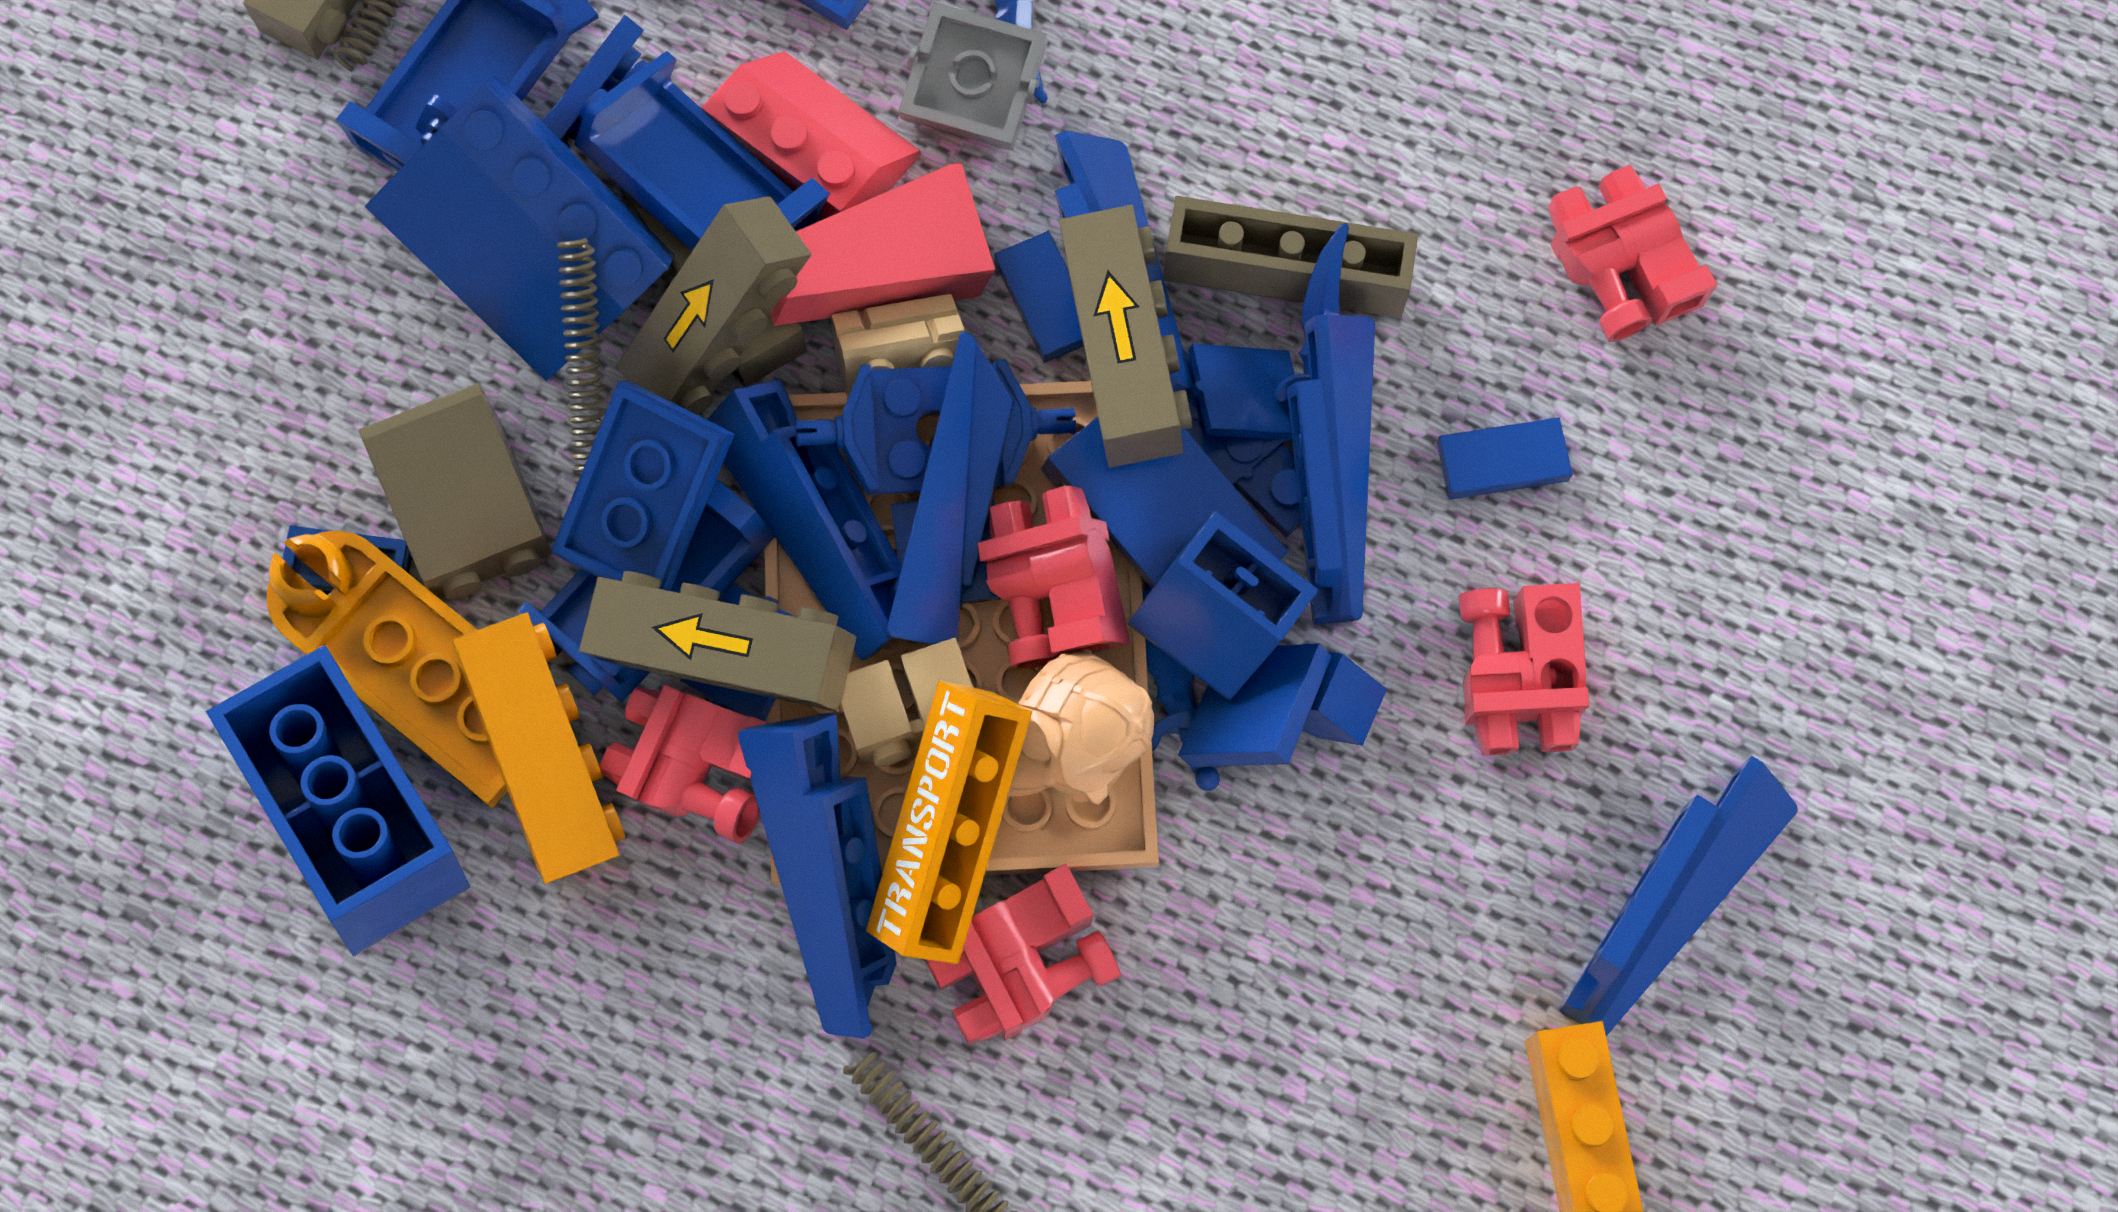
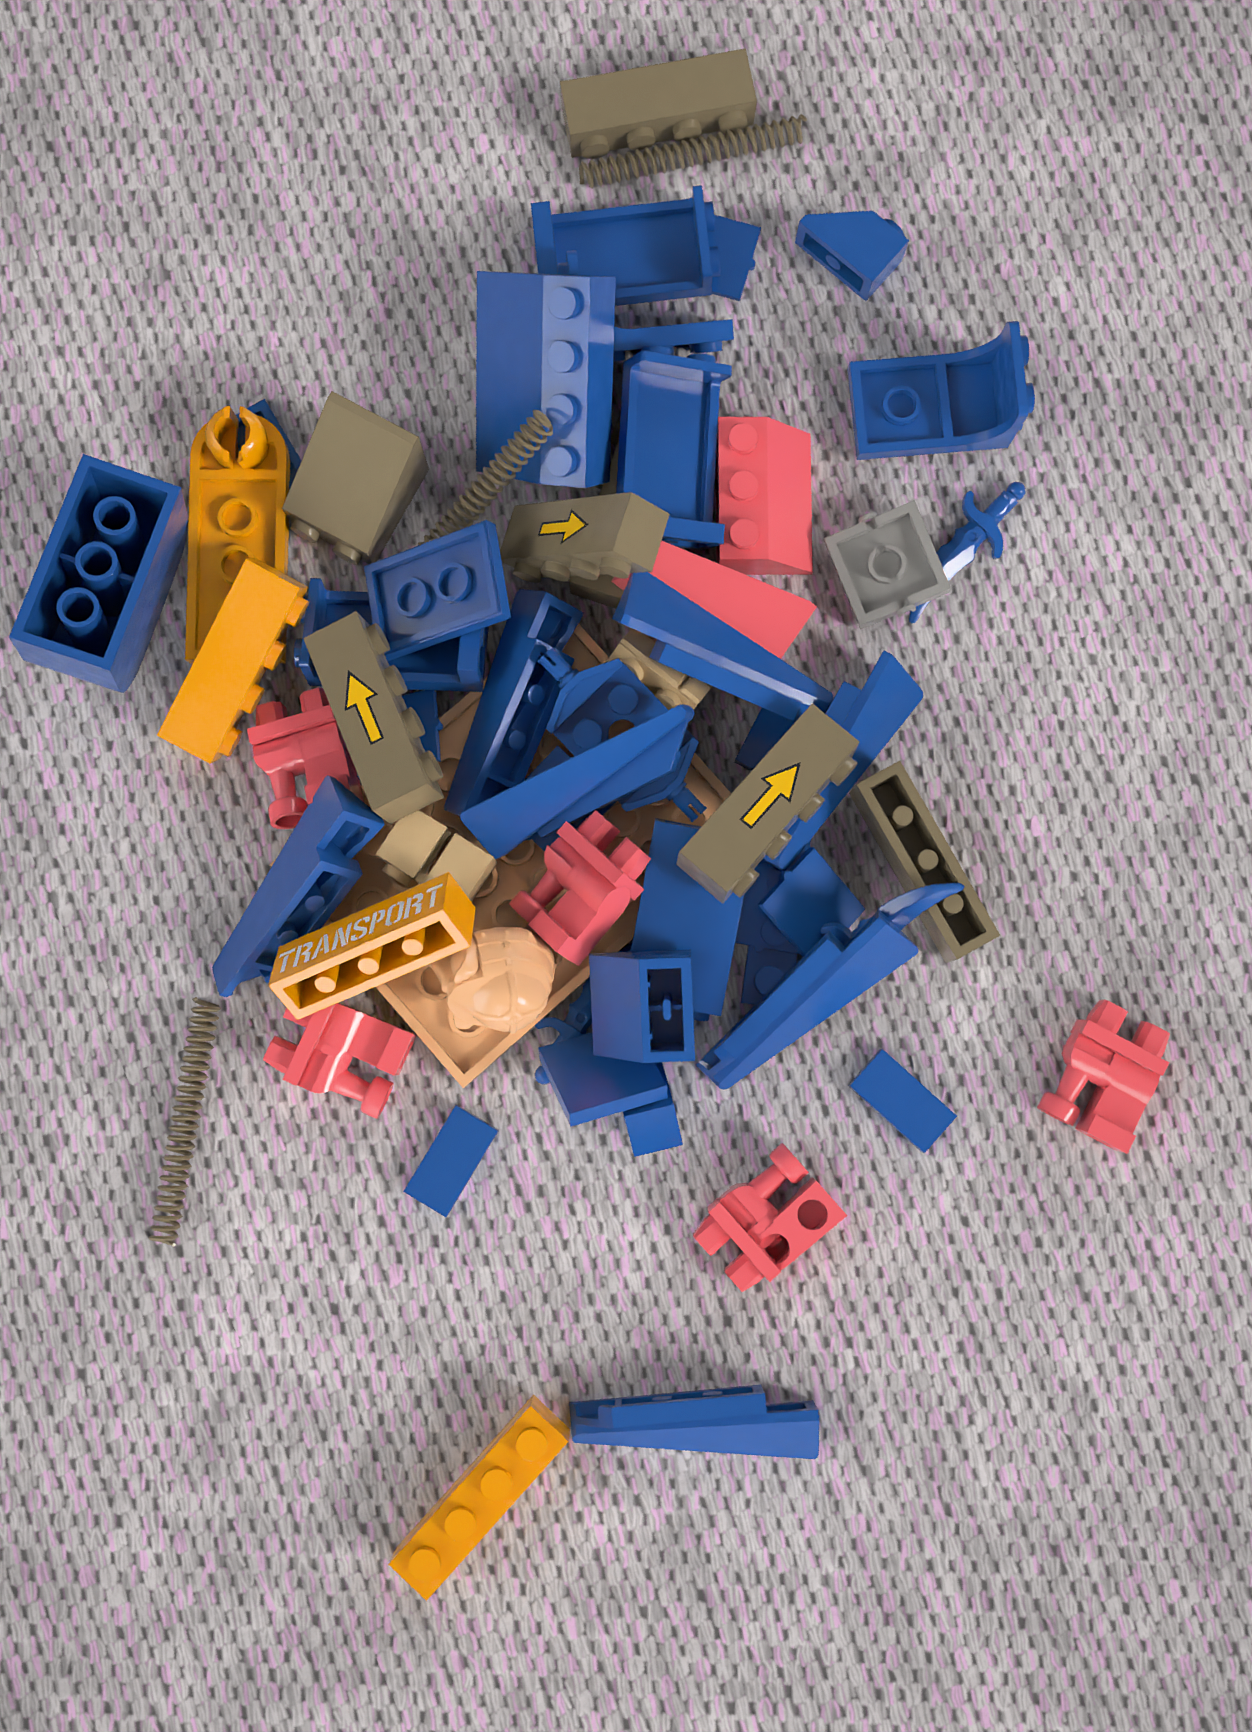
camera: 50 degrees right, 10 degrees up
(926, 281) = (714, 651): none -> blue wedge
(1222, 937) = (451, 1160): none -> blue tile

